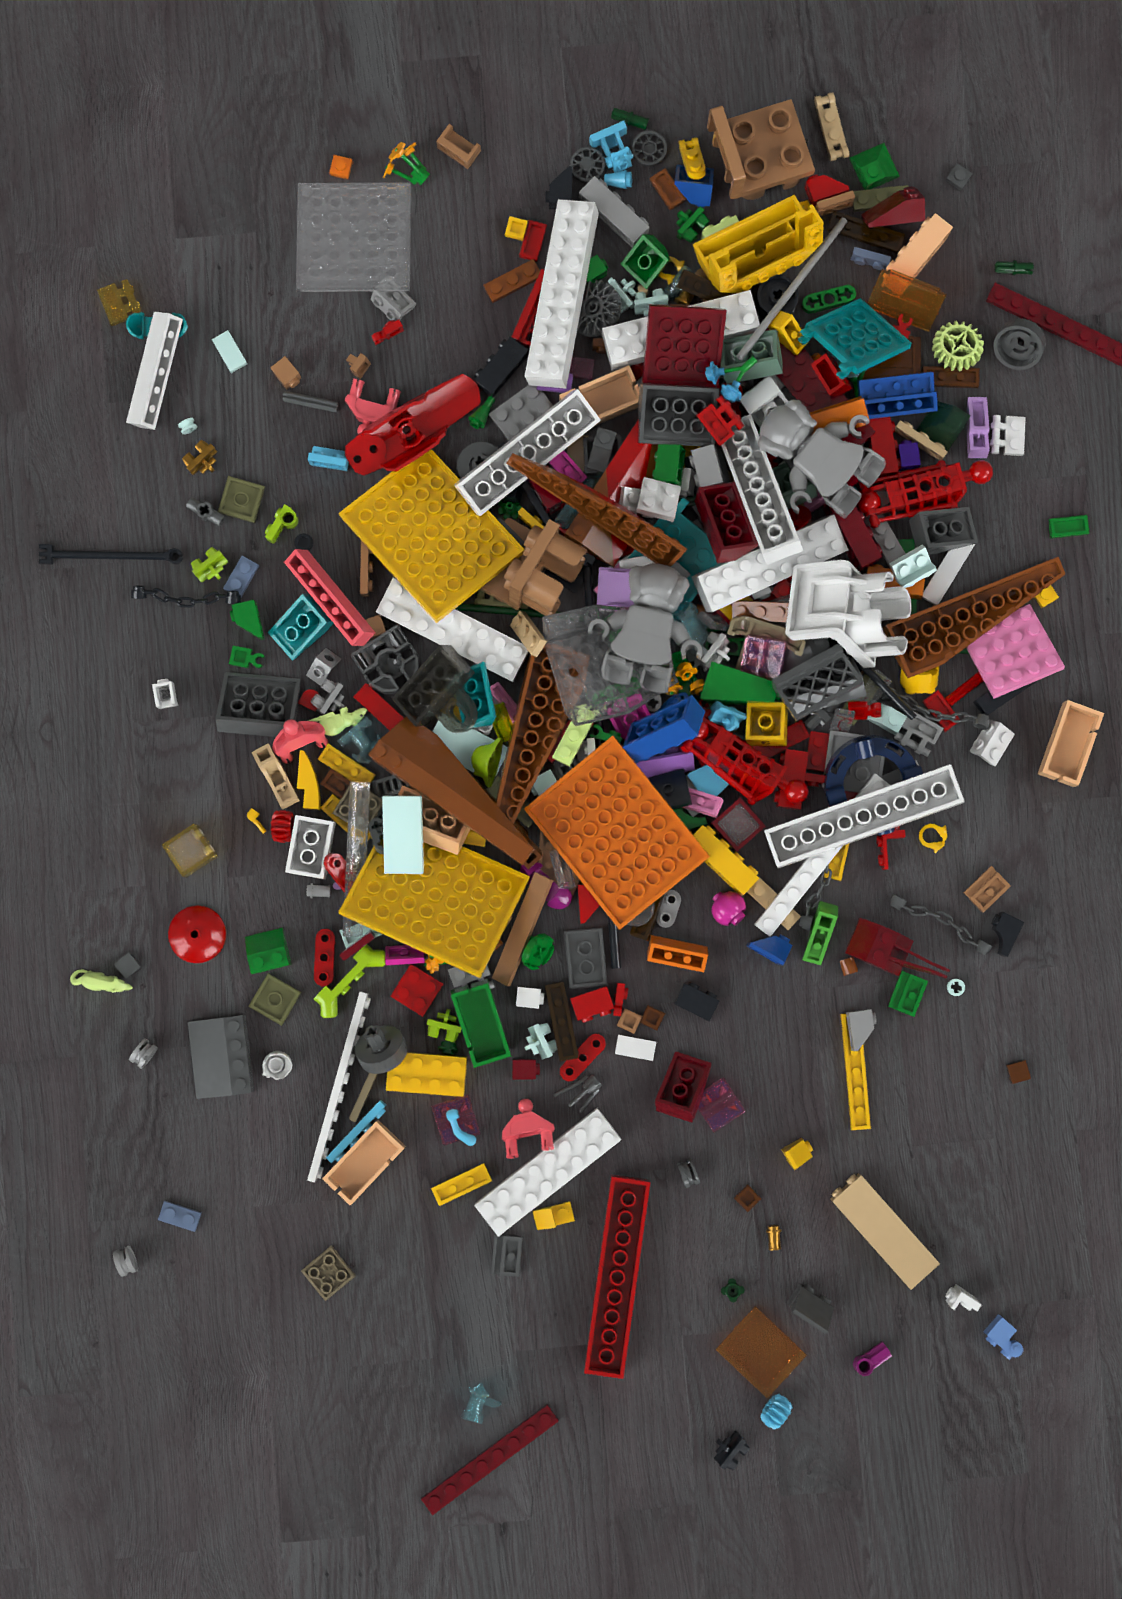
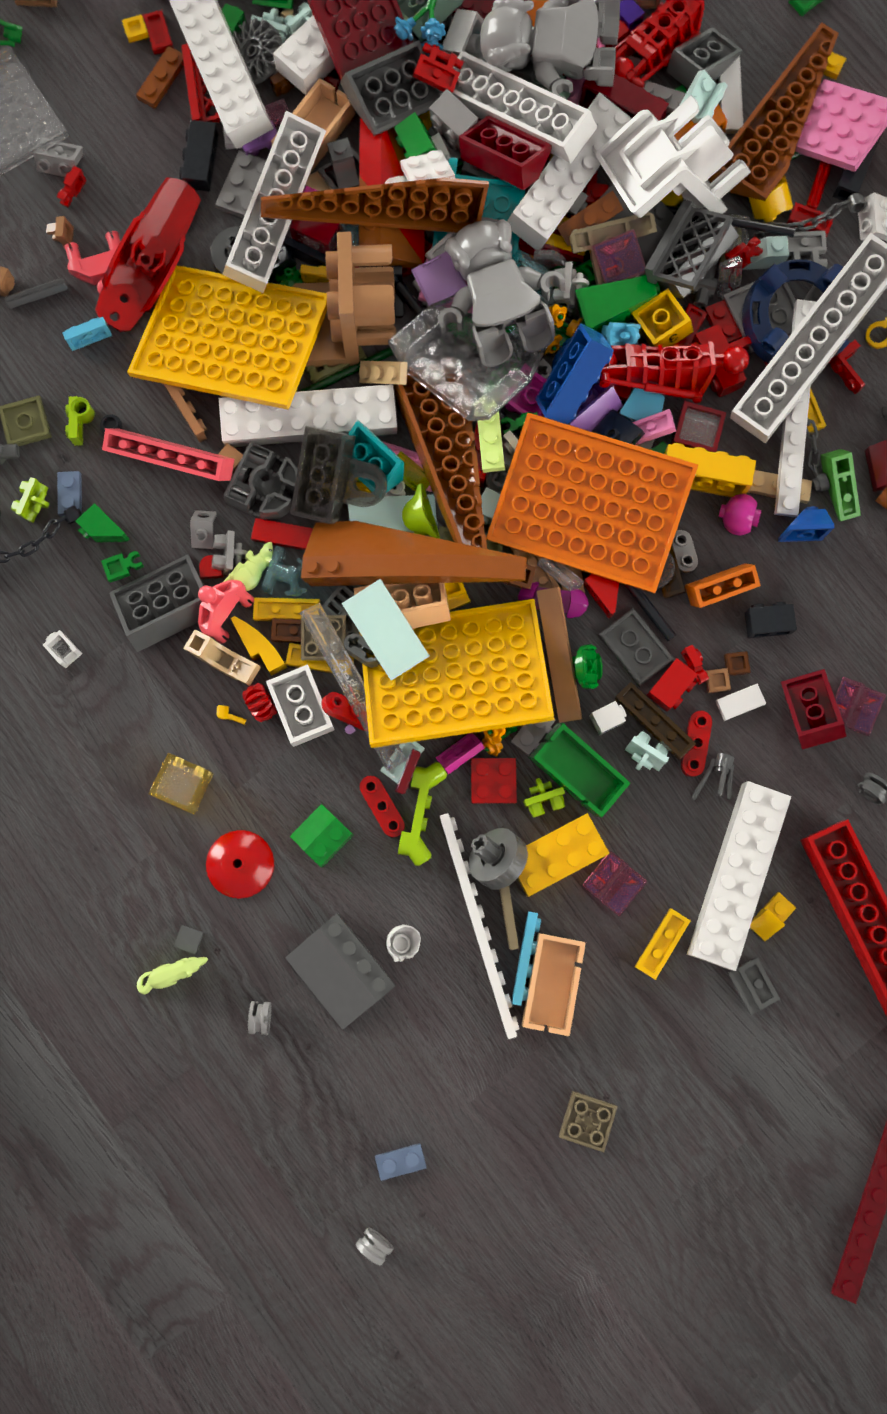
camera: 35 degrees left, 5 degrees down
(275, 999) = (358, 879): olive tile -> none
(300, 626) = (157, 501): teal slope -> none
(318, 890) = (334, 745): light grey pin -> none
(448, 1048) = (561, 817): dark green plate -> none
(467, 1138) = (636, 893): medium azure piece -> none
(476, 1403) = (826, 1161): clear light blue piece -> none
(479, 417) = (208, 212): green cone -> none
(525, 1069) = (650, 789): dark red brick -> none
(526, 1125) = (688, 842): coral connector -> none

